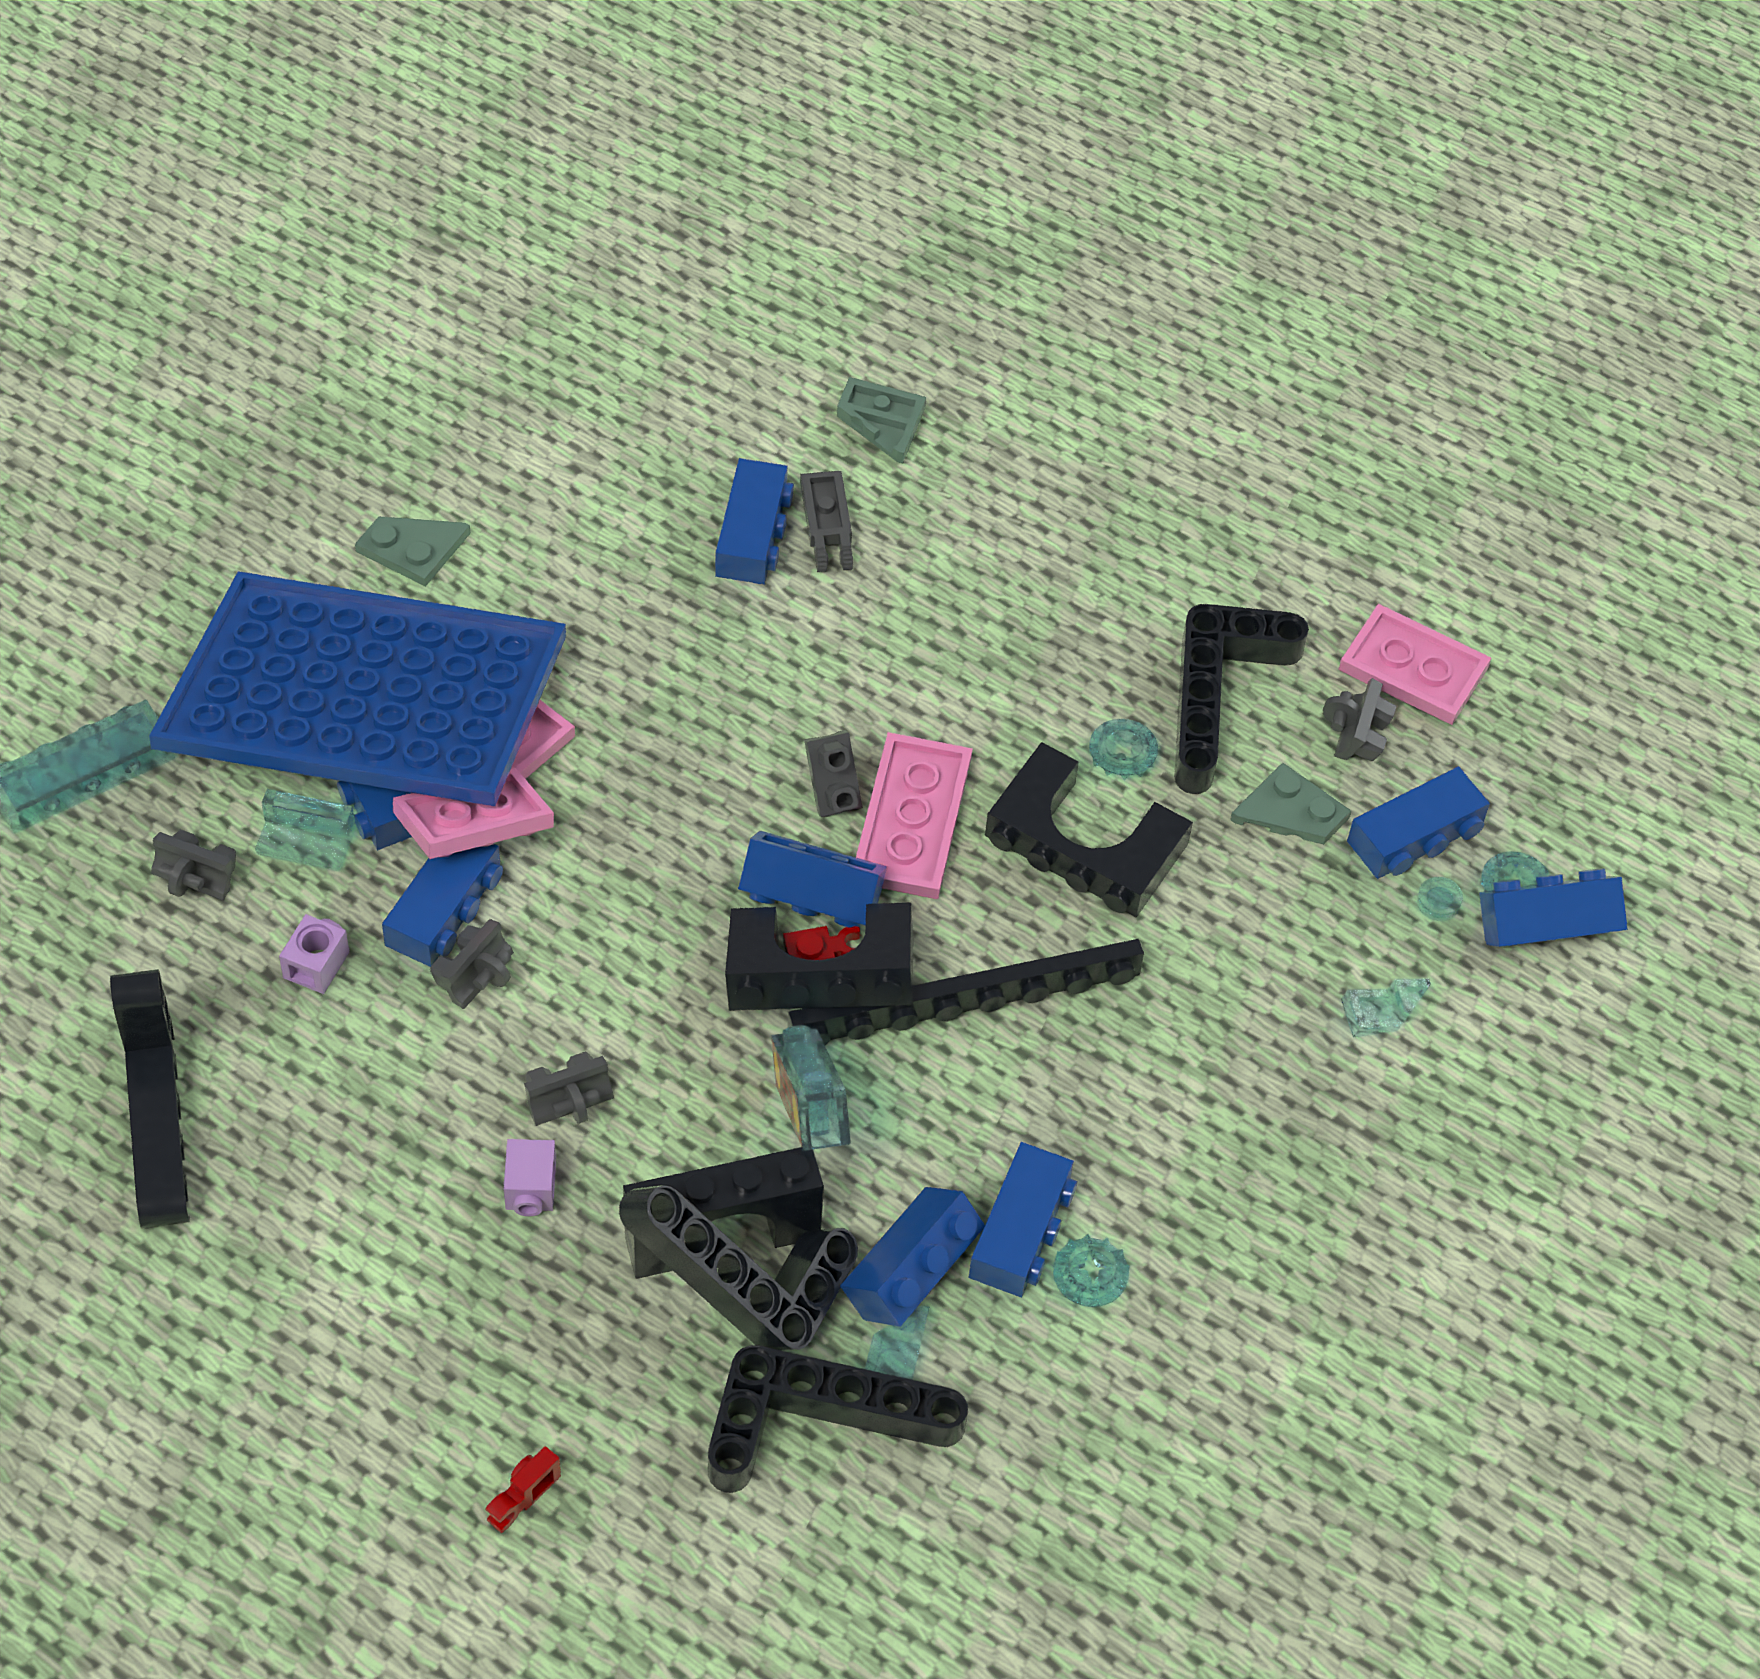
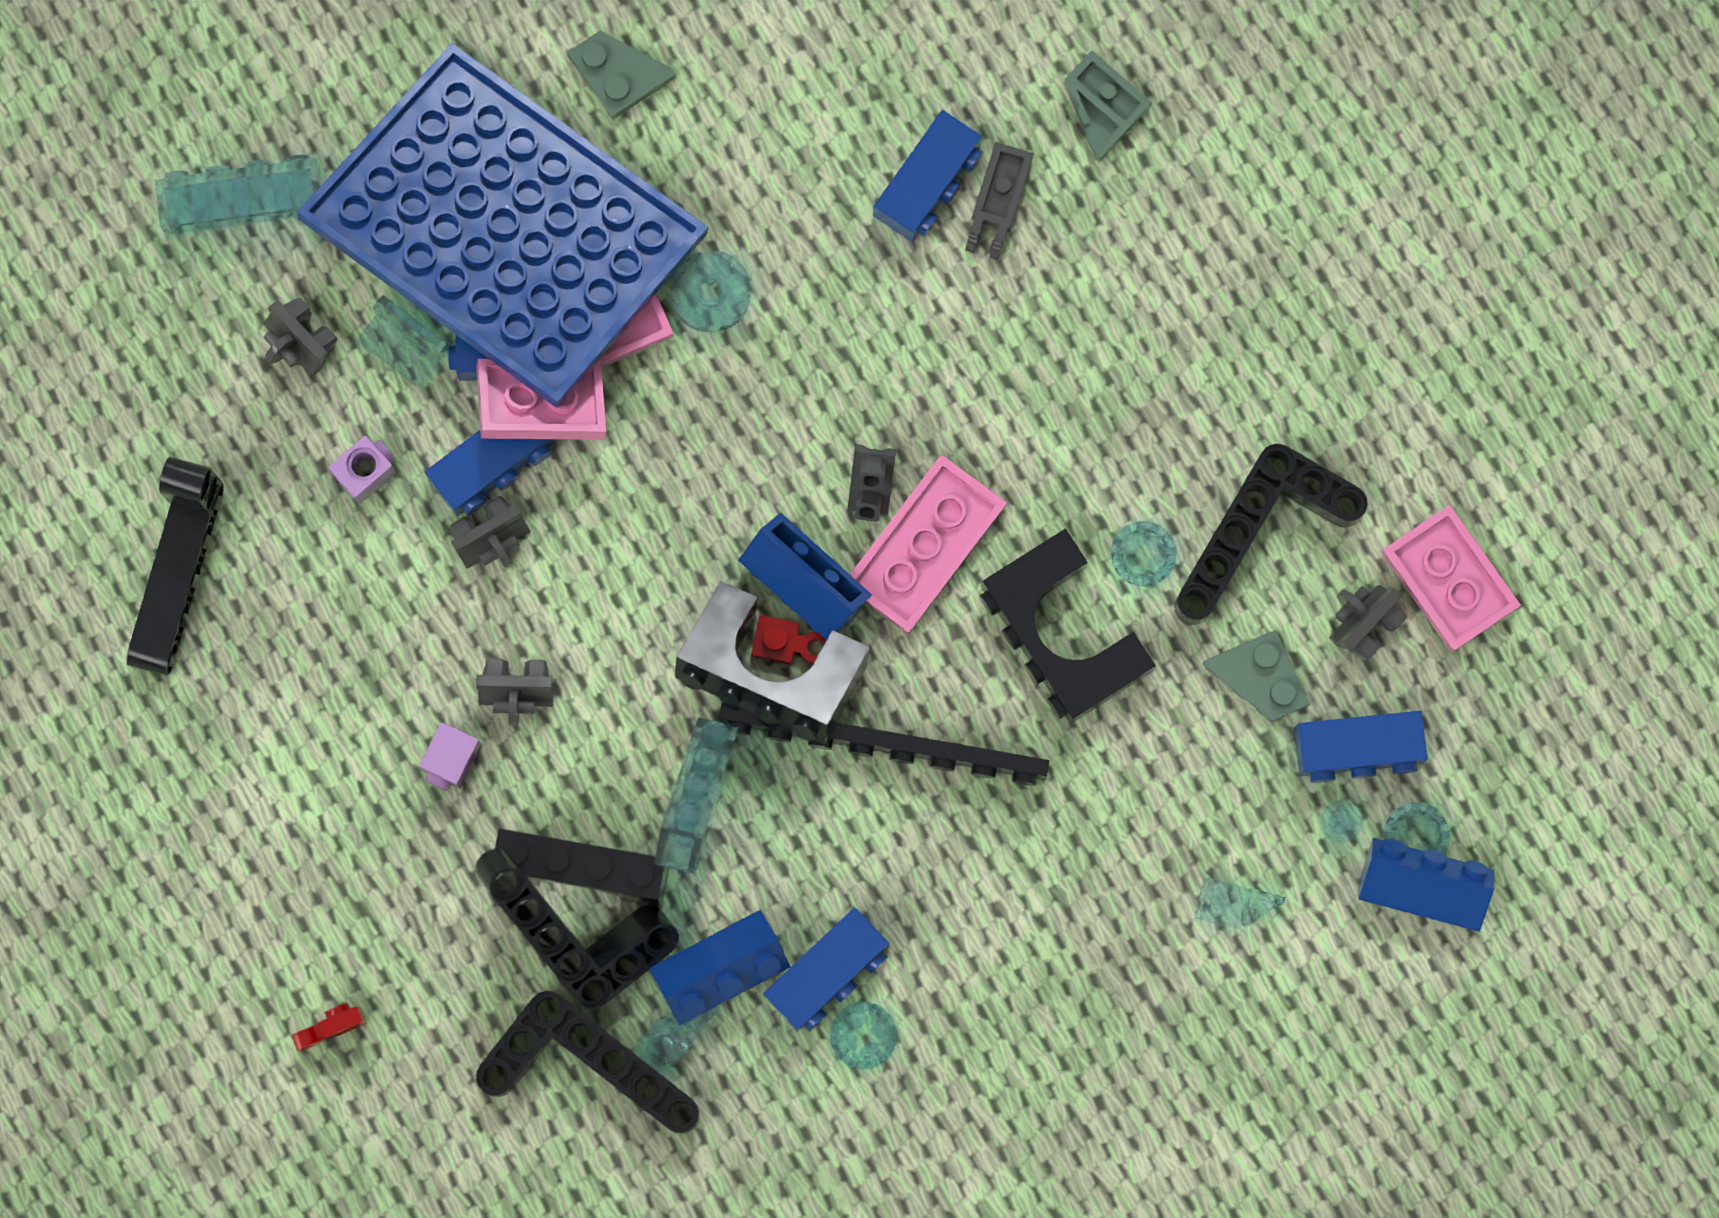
camera: 25 degrees right, 25 degrees up
(592, 705) = (713, 314): none -> clear light blue plate

